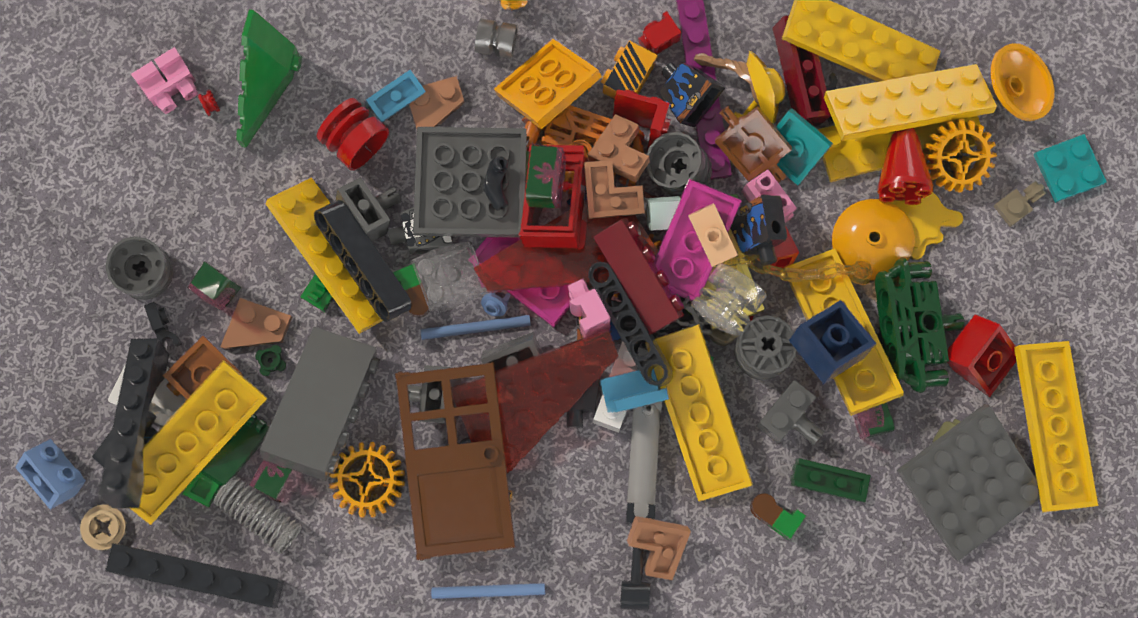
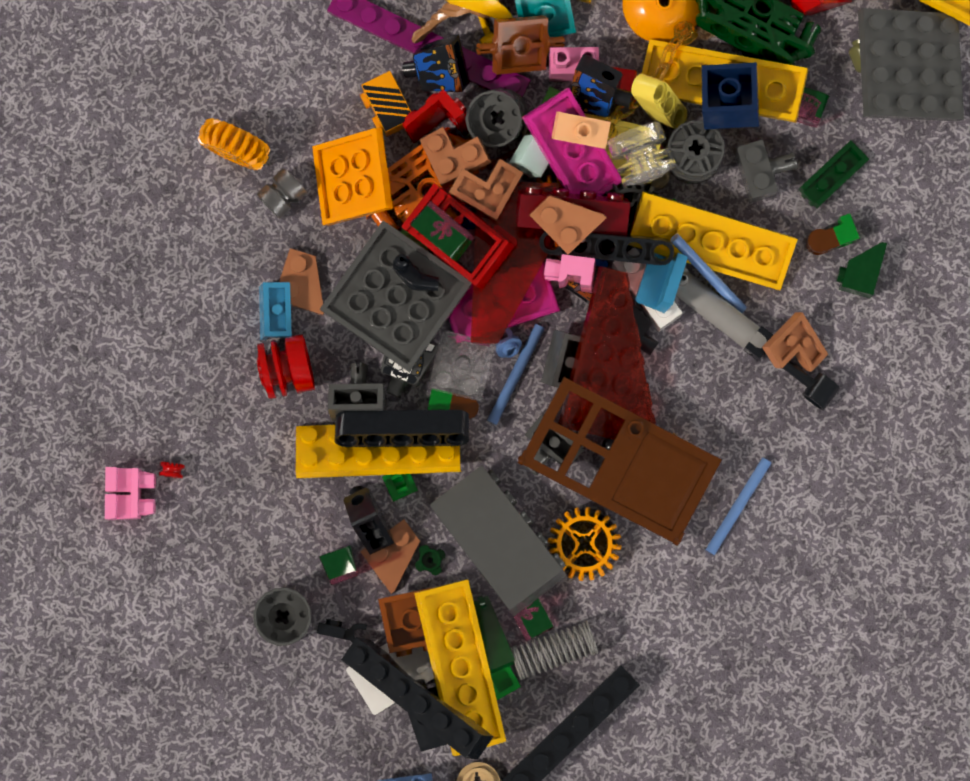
camera: 50 degrees left, 5 degrees up
(263, 73) = (180, 396): green slope -> none
(267, 284) = (361, 509): none -> black torso
(624, 272) = (566, 222): none -> nougat wing
(660, 35) = (371, 56): red brick -> none
(668, 428) = (707, 273): none -> medium blue bar
(763, 561) = (862, 272): none -> dark green slope
(786, 286) = (659, 101): none -> light yellow beam

